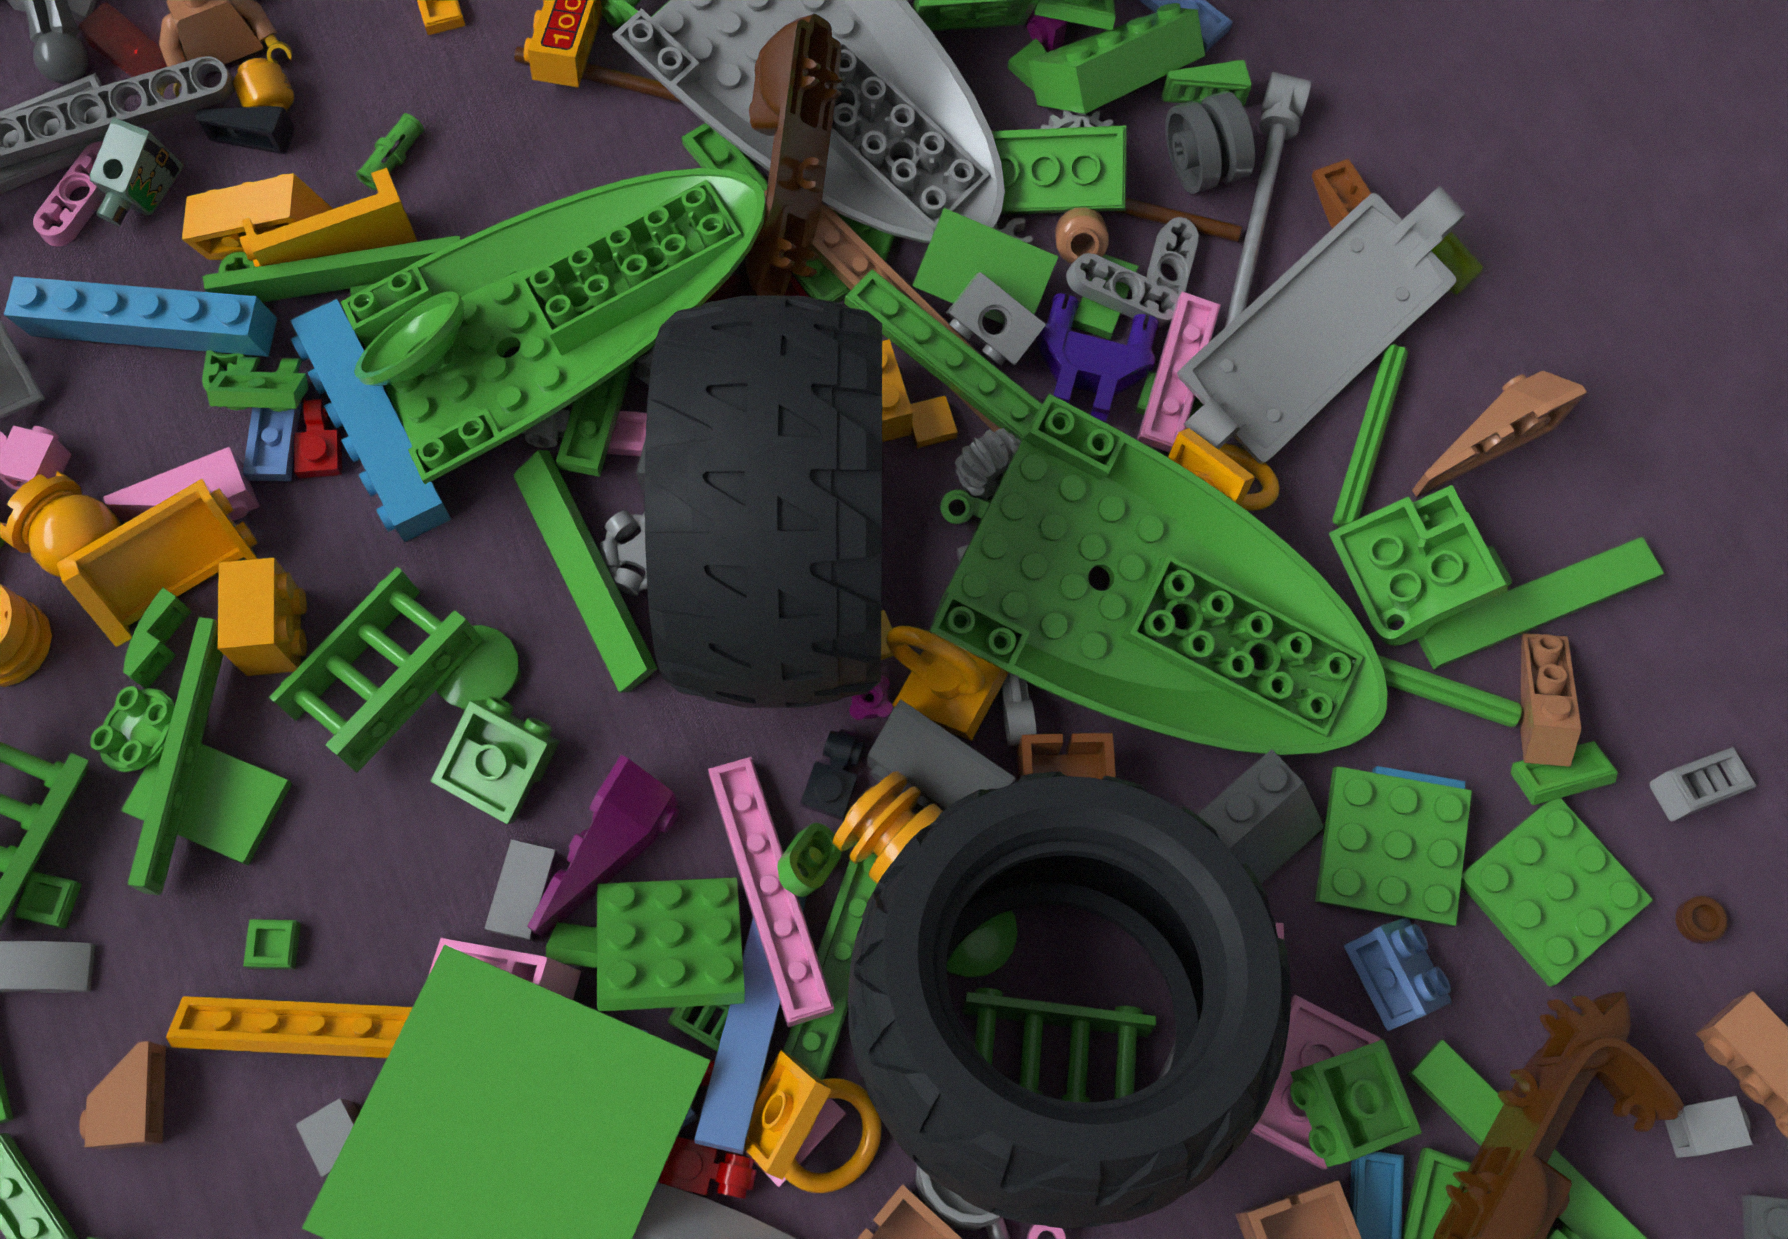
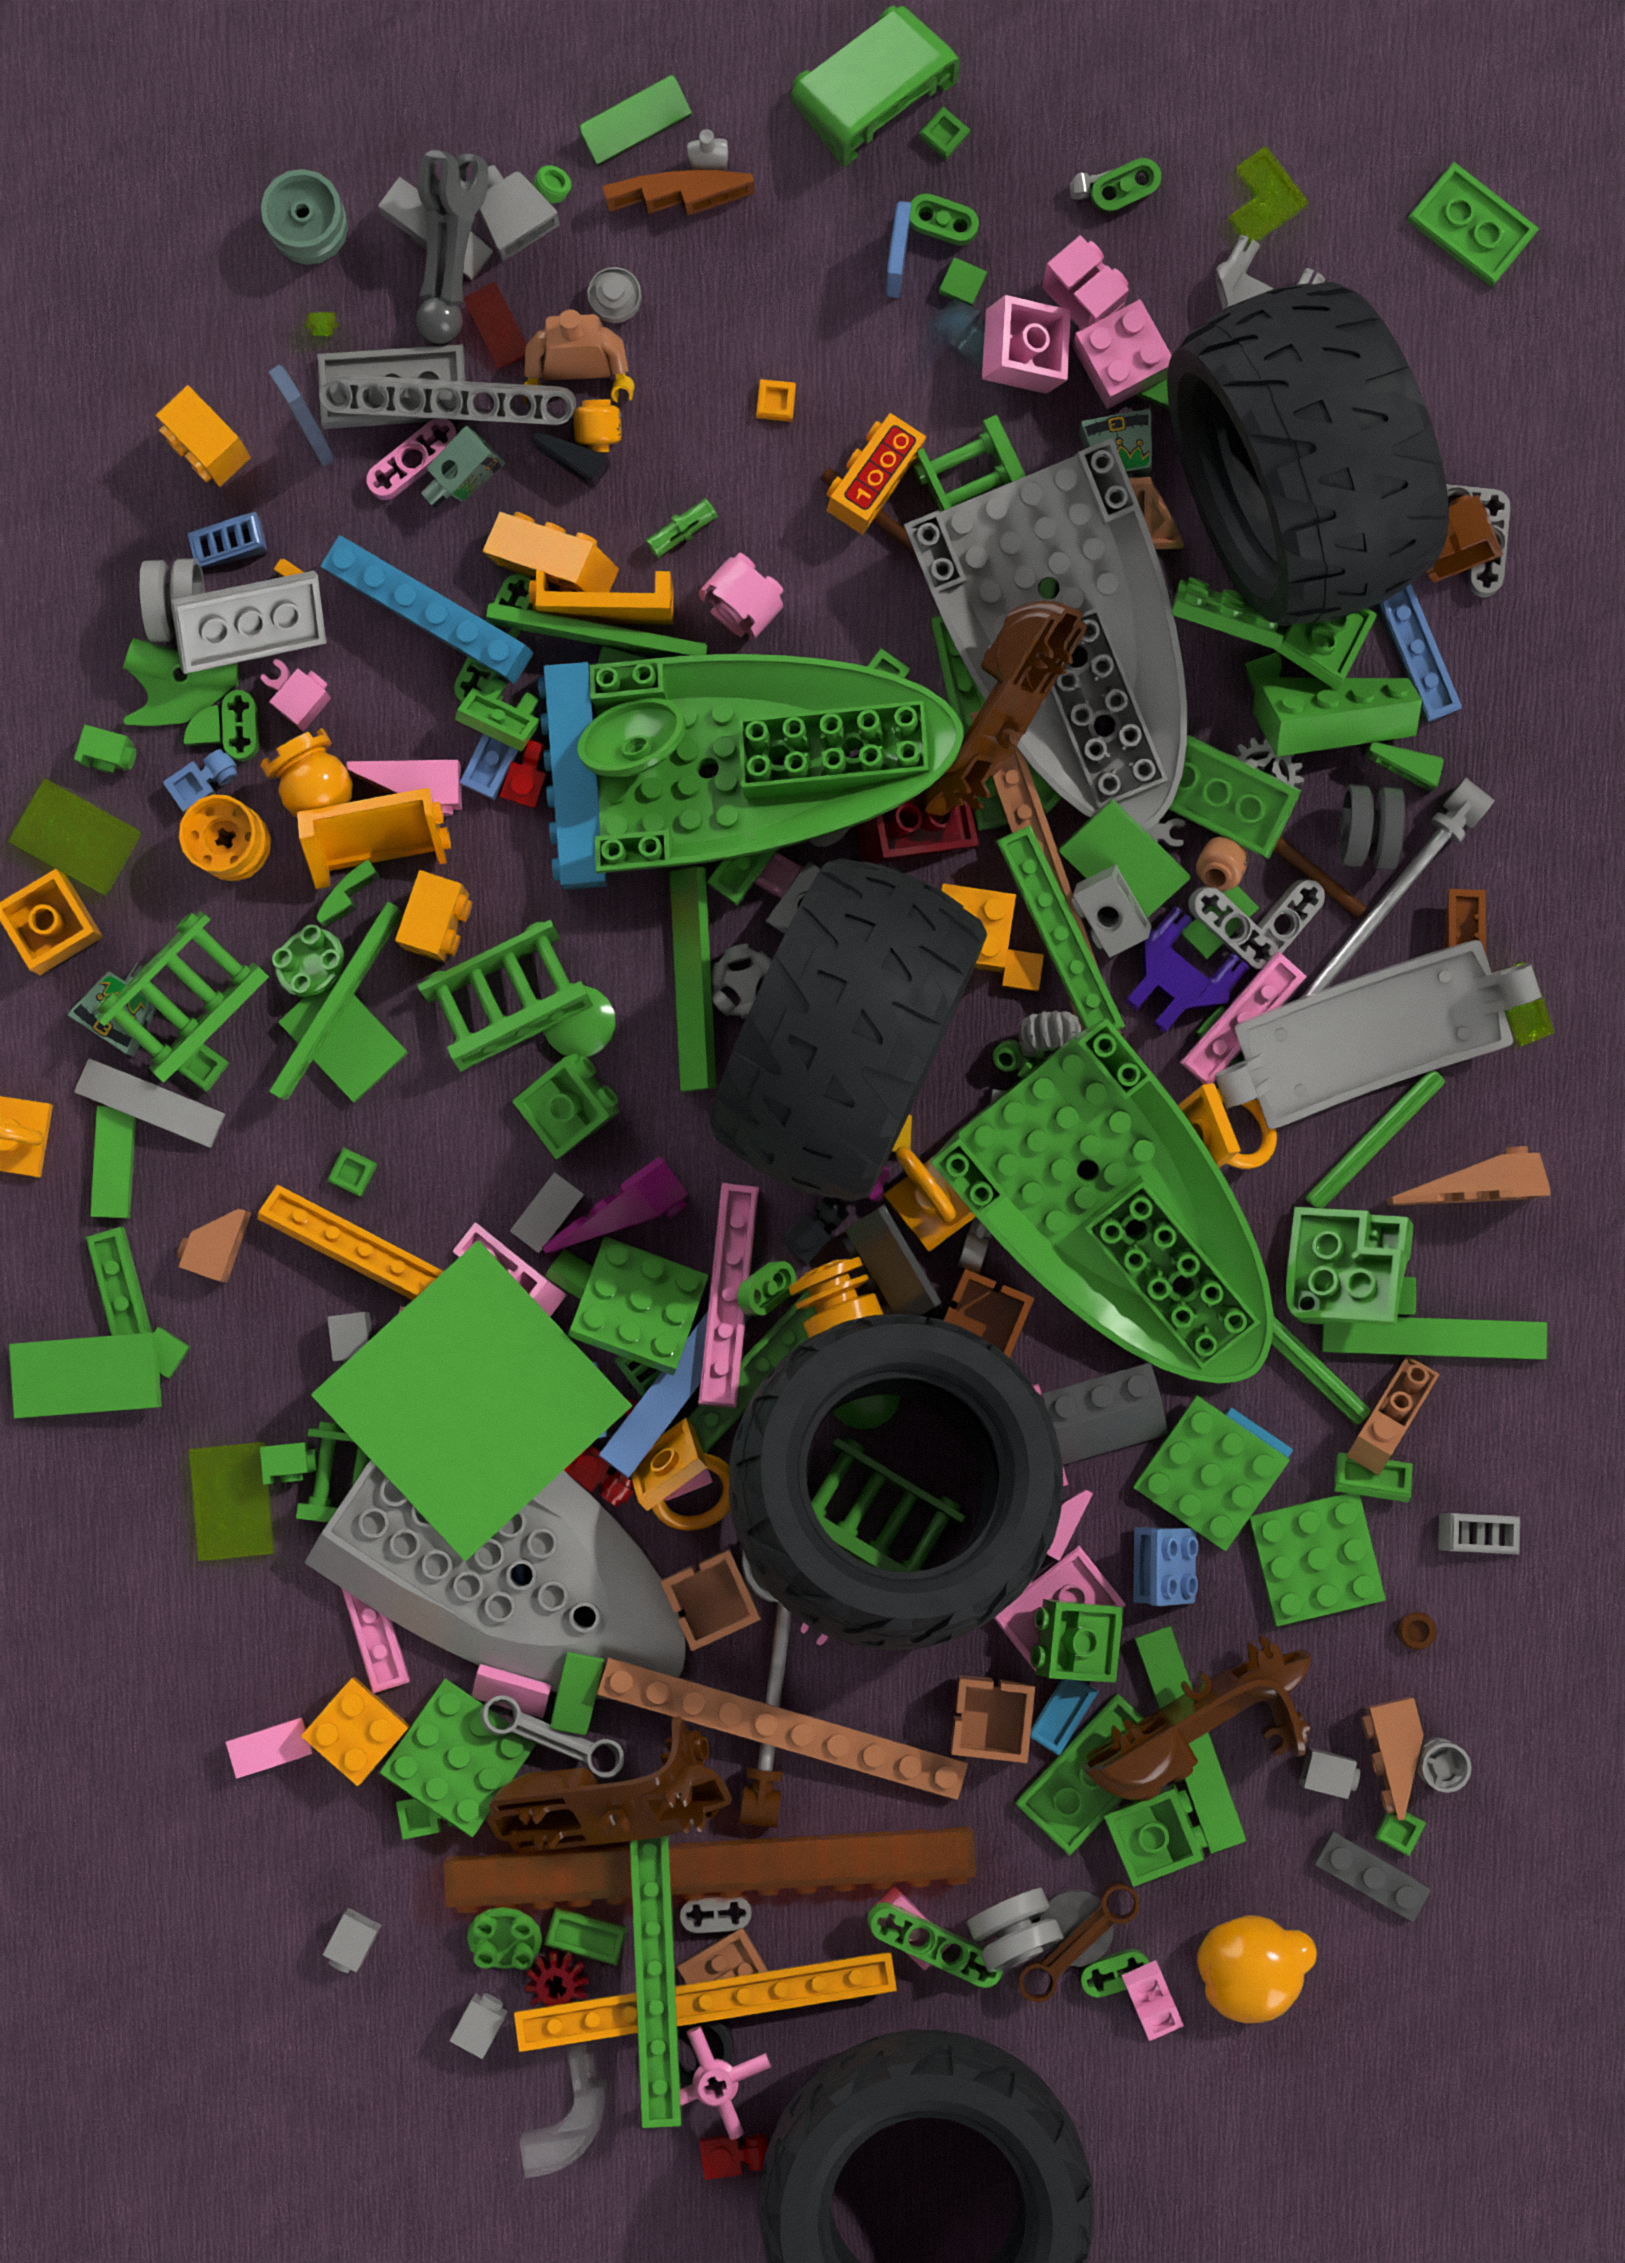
camera: 30 degrees right, 15 degrees up
(477, 180) = (742, 597): none -> bright pink brick

